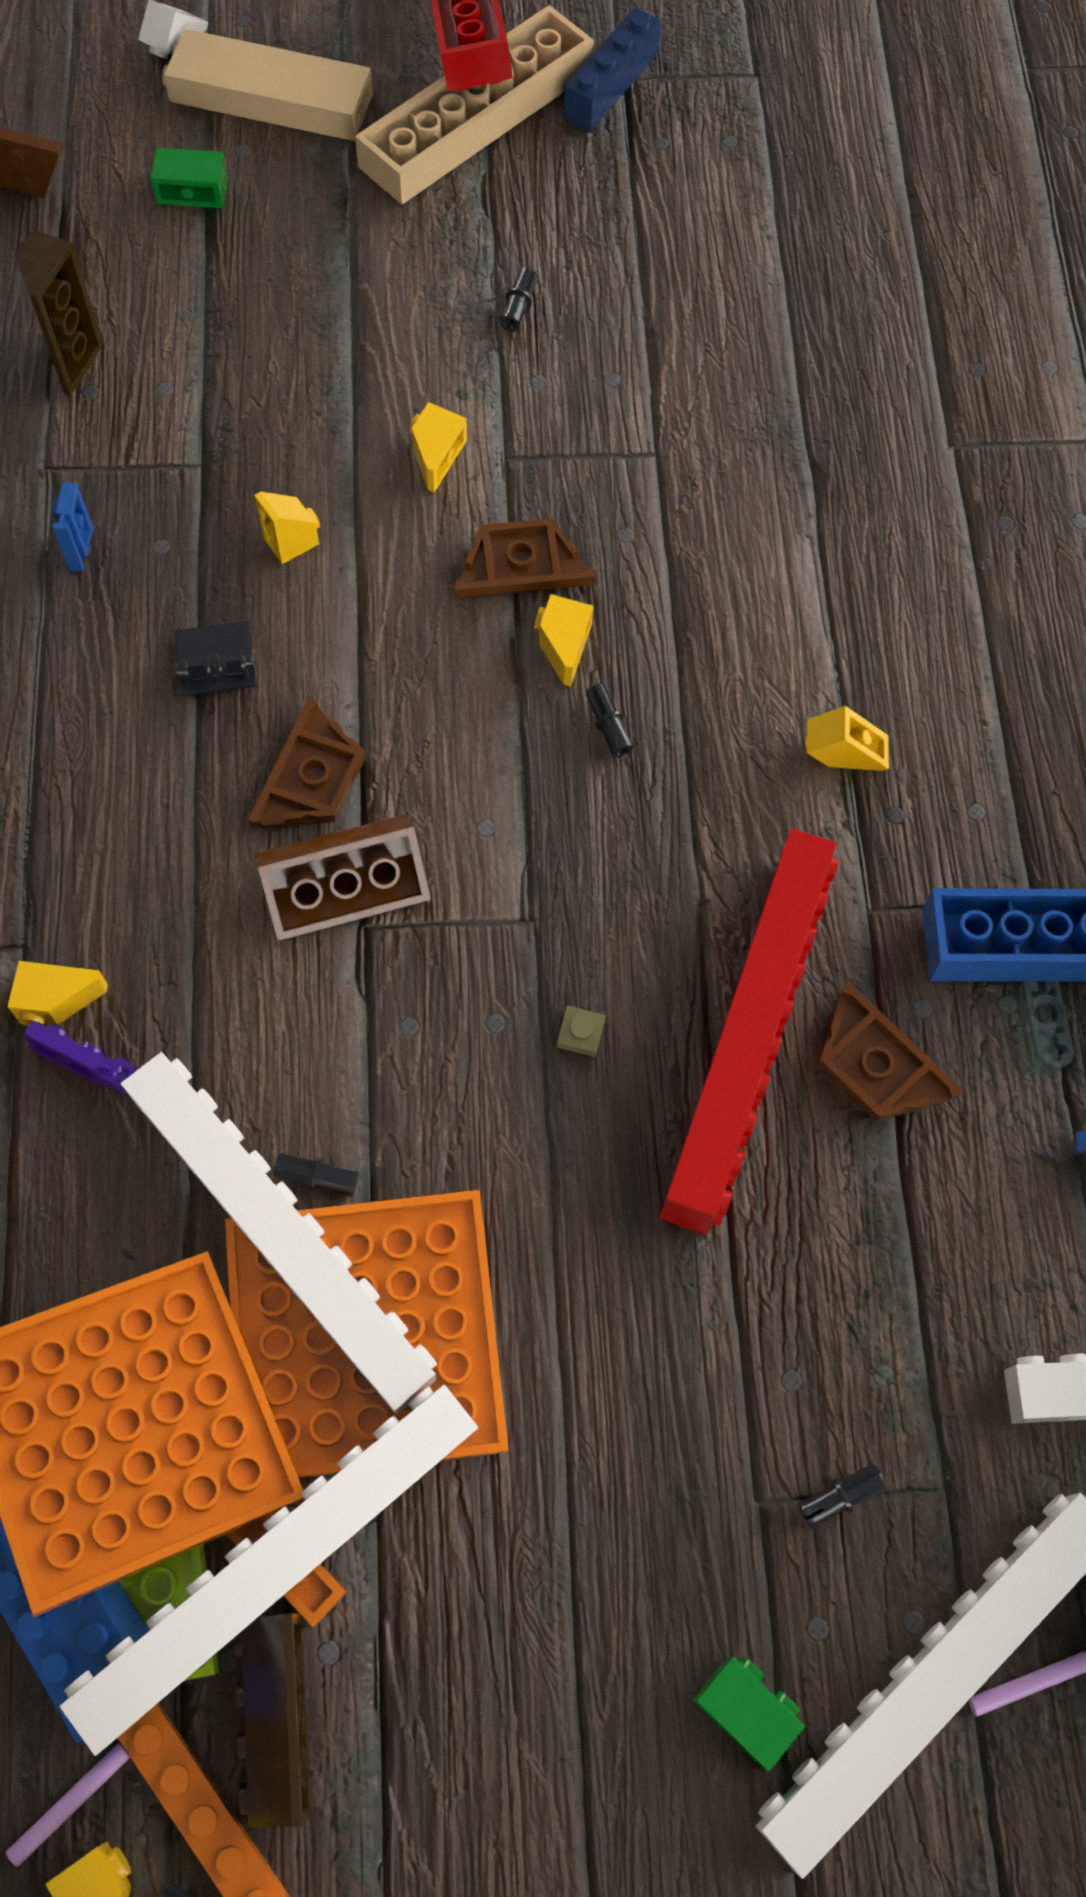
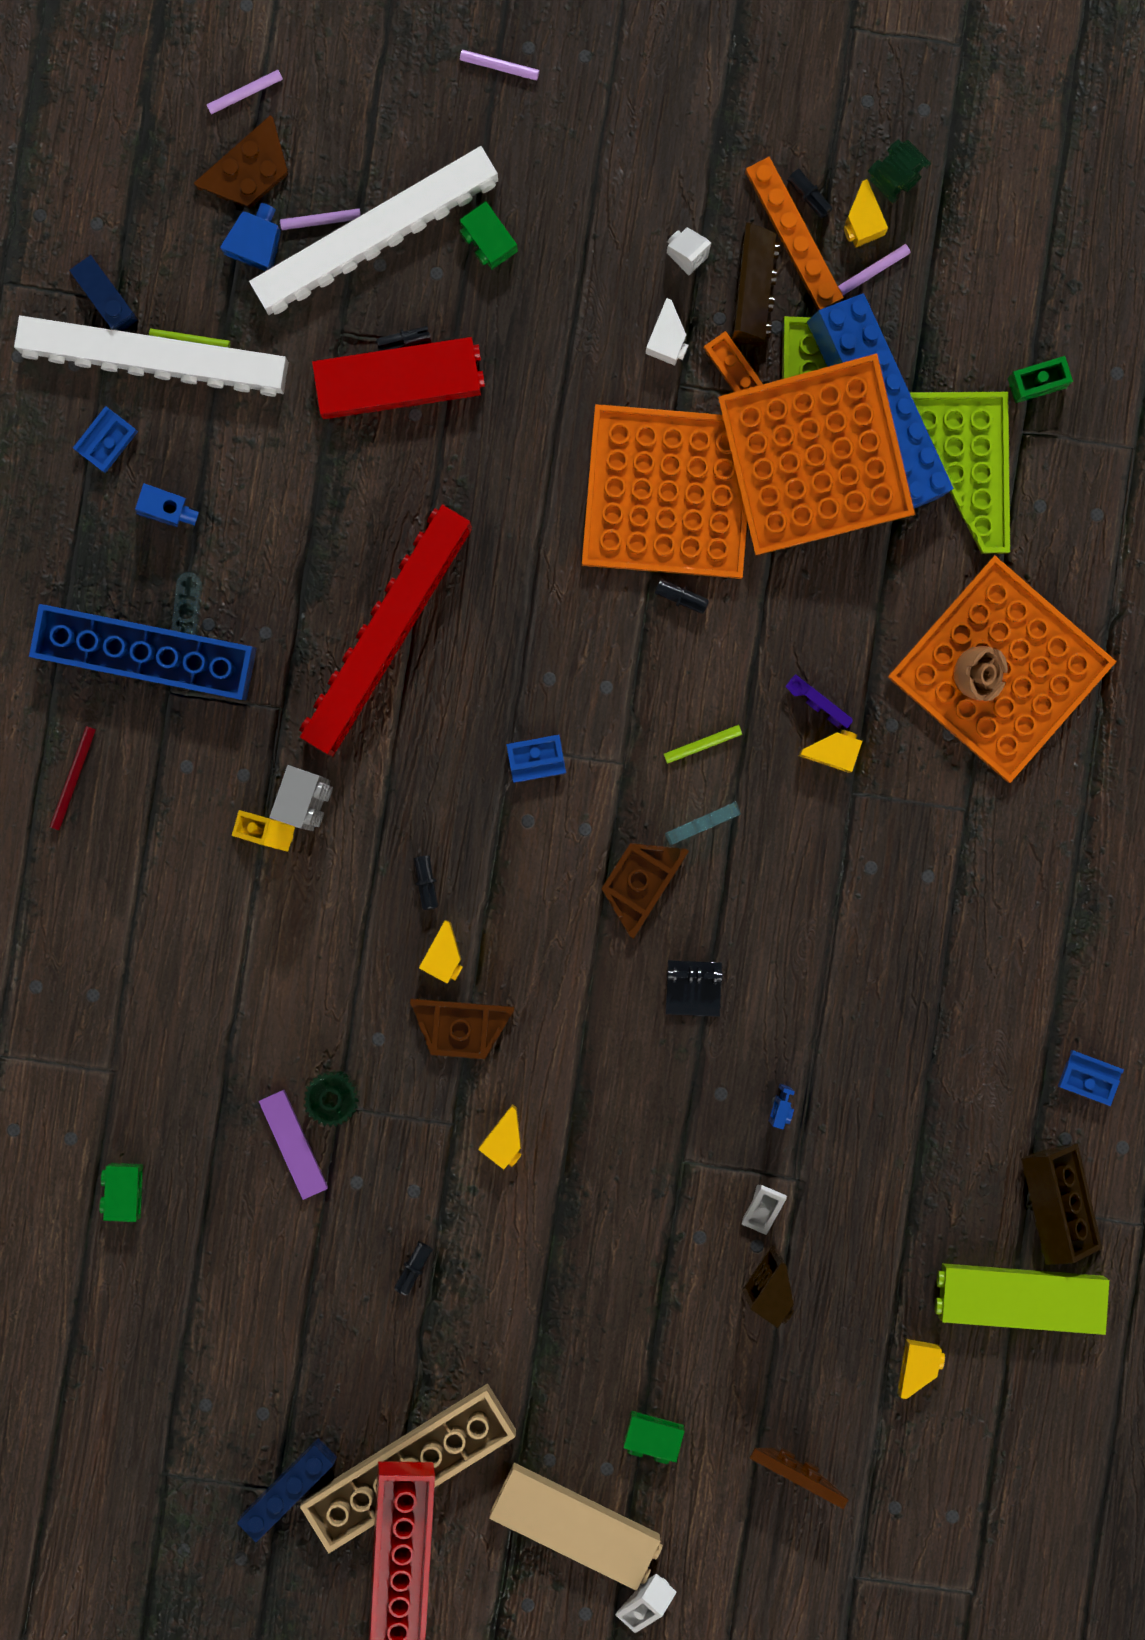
camera: 165 degrees left, 20 degrees up
(80, 423) = (763, 1209): none -> white slope
(231, 861) = (703, 823): none -> clear light blue beam
(251, 971) = (702, 744): none -> lime bar
(264, 1571) = (740, 359): white brick -> none
(280, 1233) = (711, 559): white brick -> none
(286, 525) = (624, 1083): yellow slope -> none
(342, 876) = (632, 797): reddish brown slope -> none
(401, 1763) = (688, 249): none -> white slope
(408, 1596) = (668, 336): none -> white slope
(490, 904) = (536, 758): none -> blue plate
(581, 1031) = (494, 659): olive plate -> none
(667, 448) = (326, 1112): none -> clear green brick
(702, 402) = (293, 1144): none -> medium lavender tile
(811, 760) = (301, 799): none -> light grey brick
(833, 1428) = (398, 378): none -> red brick
(880, 1062) = (306, 598): reddish brown wing -> none
(896, 316) = (122, 1192): none -> green brick

